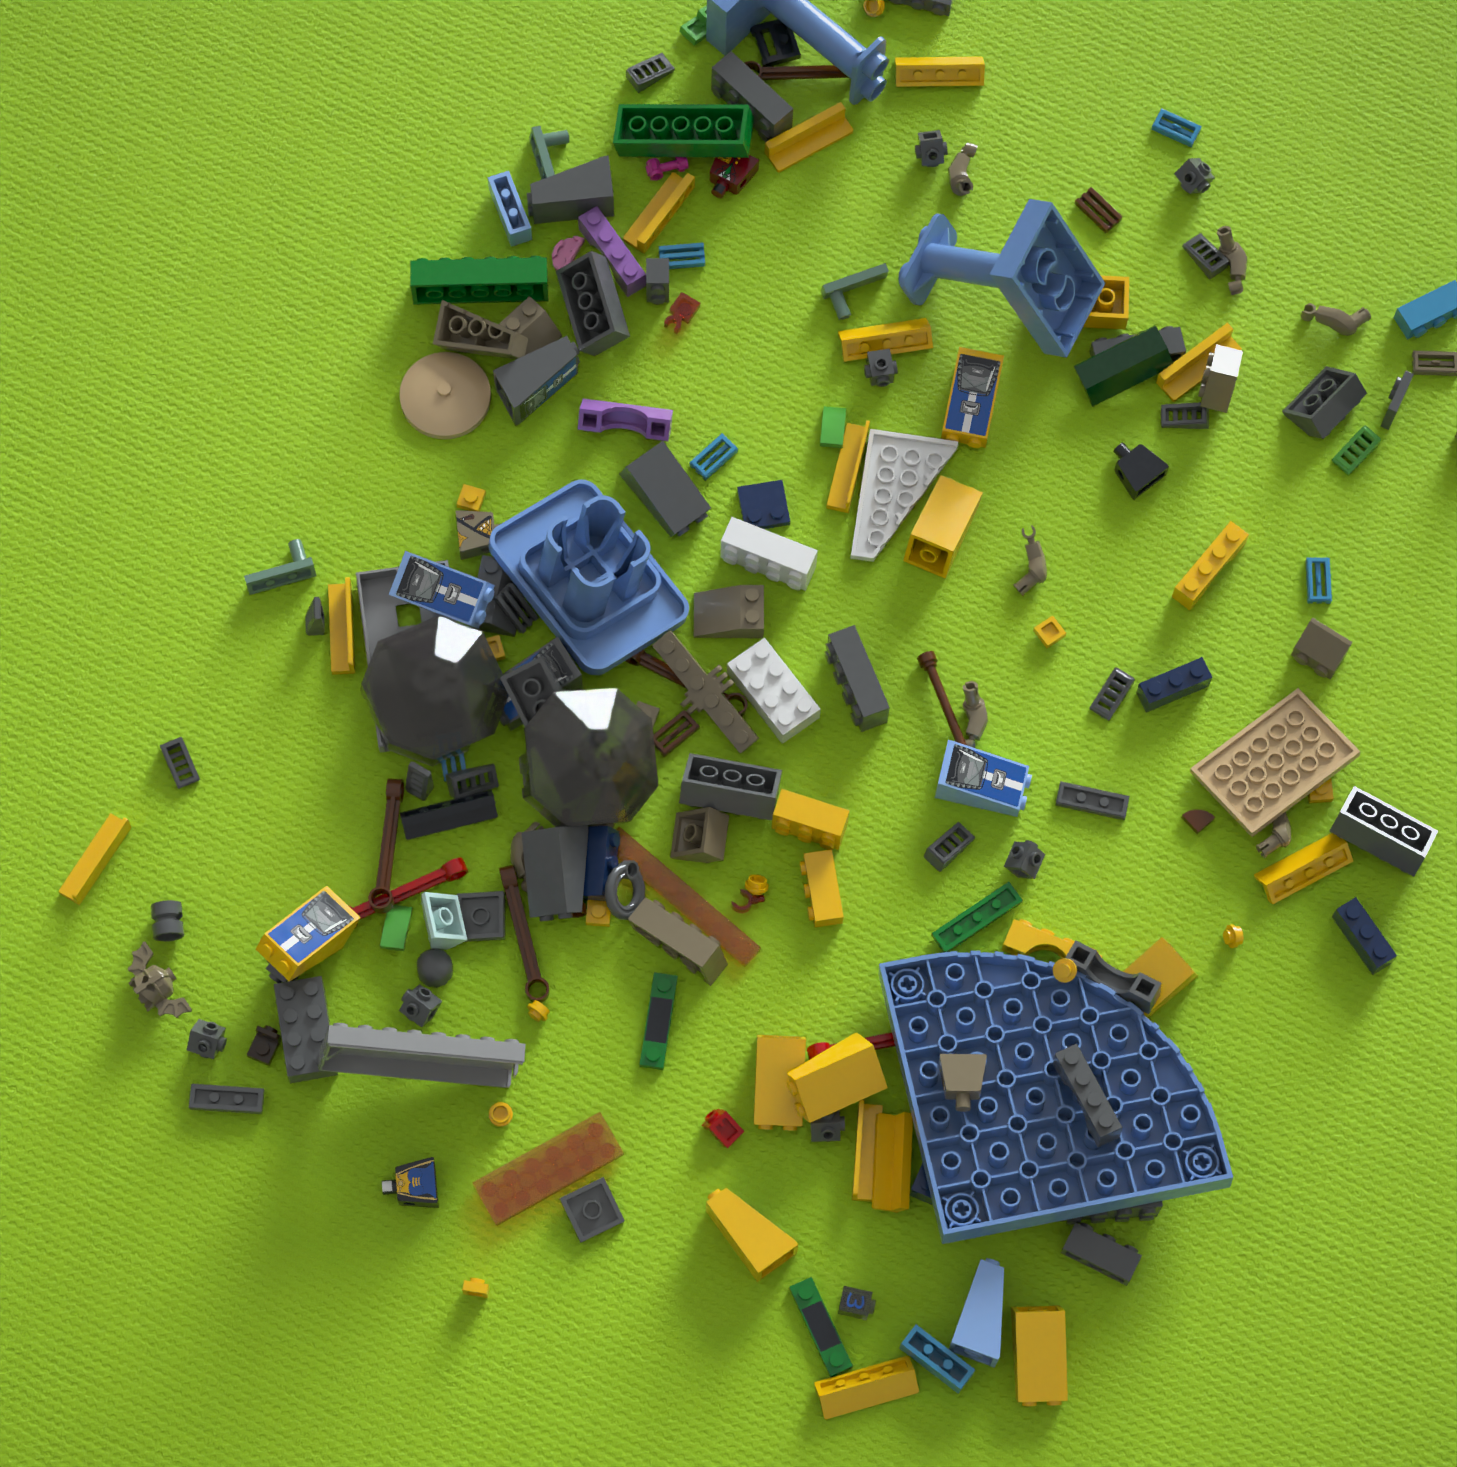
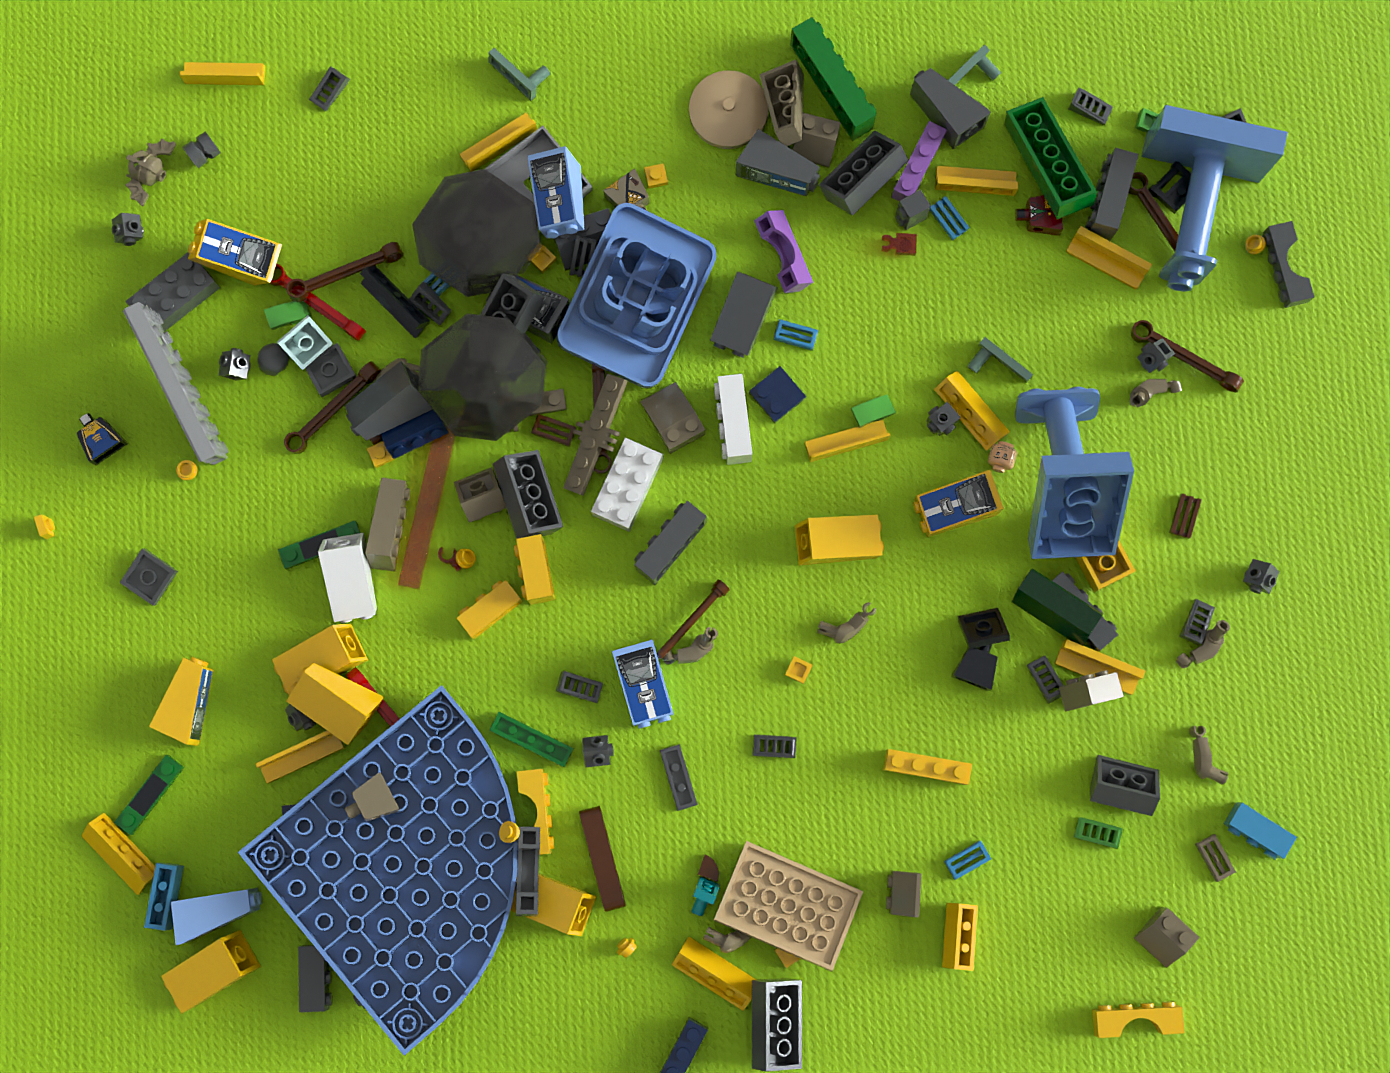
camera: 65 degrees right, 10 degrees up
(226, 1098) = (93, 269): dark grey plate -> none
(264, 1045) = (147, 272): dark brown bracket -> none
(315, 618) = (492, 118): dark grey slope -> none
(419, 781) = (407, 266): dark grey slope -> none
(509, 208) = (907, 67): light blue brick -> none
(538, 1011) = (278, 452): yellow plate -> none
(548, 1168) = (162, 527): clear orange plate -> none
(566, 251) = (900, 131): bright pink tile -> none
(626, 870) = (419, 457): dark grey piece -> none
(655, 168) = (1009, 157): dark pink bar -> none
(712, 1004) = (348, 577): none -> white slope
(722, 1127) = (261, 637): red bracket -> none
(856, 1303) = (178, 811): clear smoke brick -> none
(892, 1162) = (299, 779): yellow panel -> none
(893, 481) = (857, 481): white wing -> none
(939, 71) = (1229, 326): yellow panel -> none
(948, 335) = (1002, 456): none -> light nougat head
(990, 101) = (1227, 379): none -> reddish brown piece
(1096, 1109) = (408, 905): dark grey arch -> none
(1105, 441) = (983, 628): none -> black plate
(1133, 912) = (602, 858): none -> reddish brown beam
(1174, 684) = (809, 791): dark blue brick -> none
(1175, 131) = (1289, 539): dark azure tile -> none
(1221, 835) = (705, 893): none -> teal piece
(1388, 622) = (960, 936): none -> yellow brick
(1396, 395) = (1165, 842): dark grey plate -> none

